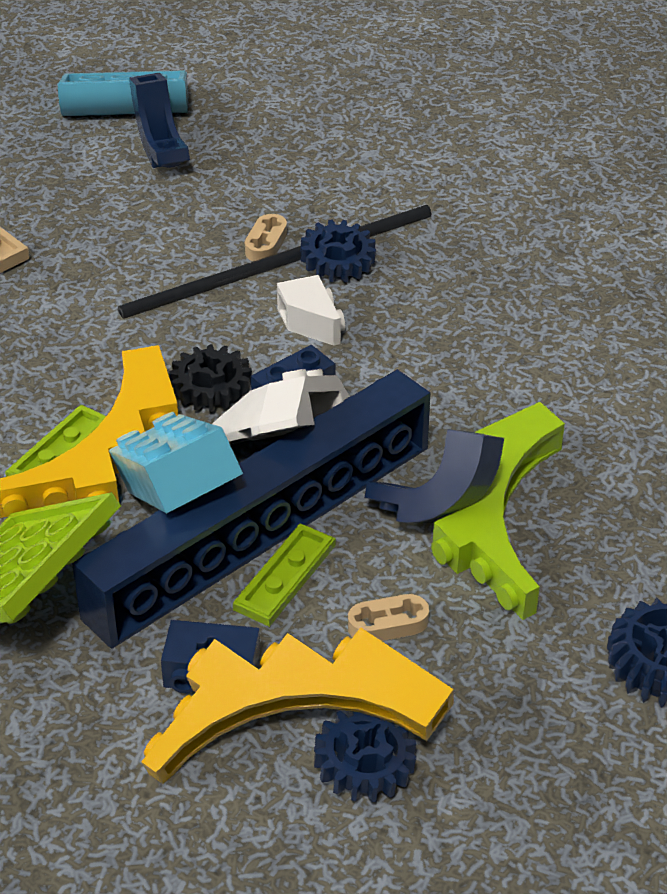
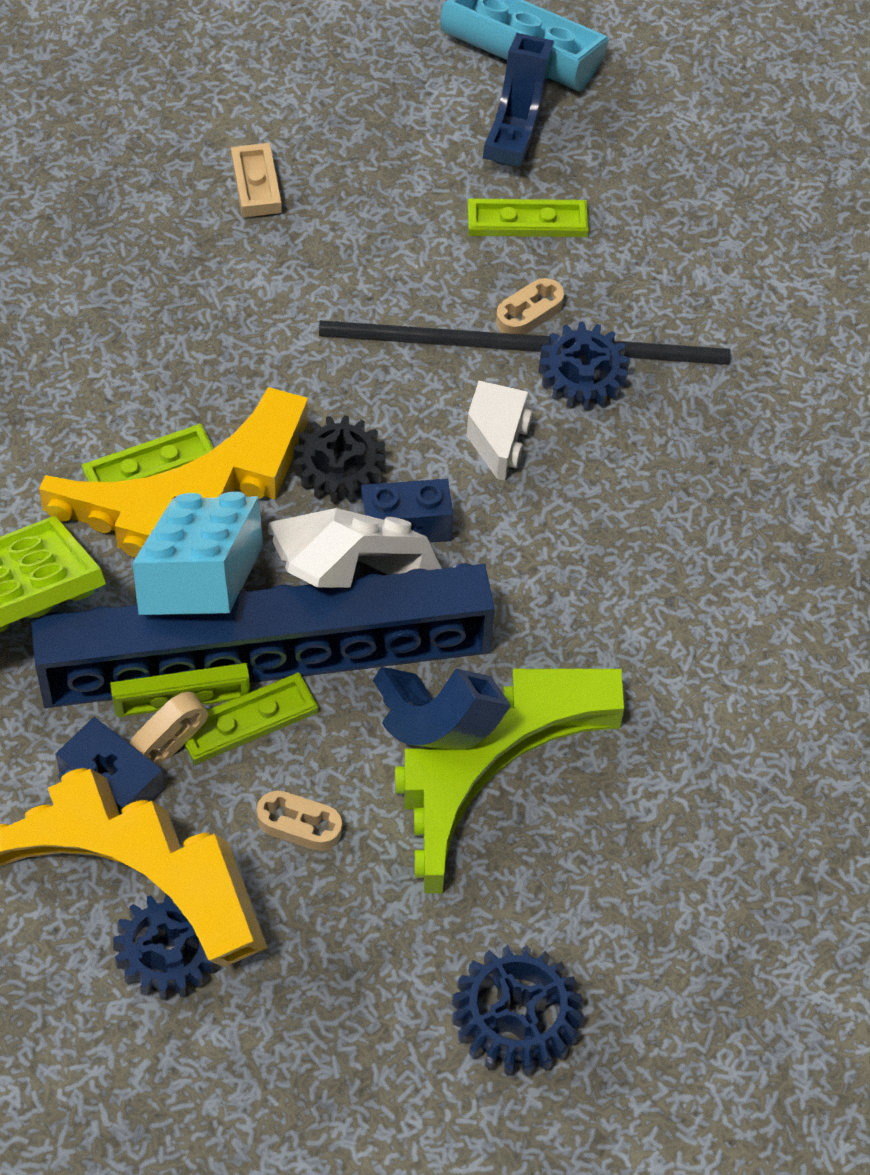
camera: 30 degrees right, 15 degrees up
(215, 191) = (527, 217): none -> lime tile
(218, 576) = (153, 692): none -> lime tile
(239, 594) = (170, 727): none -> tan beam

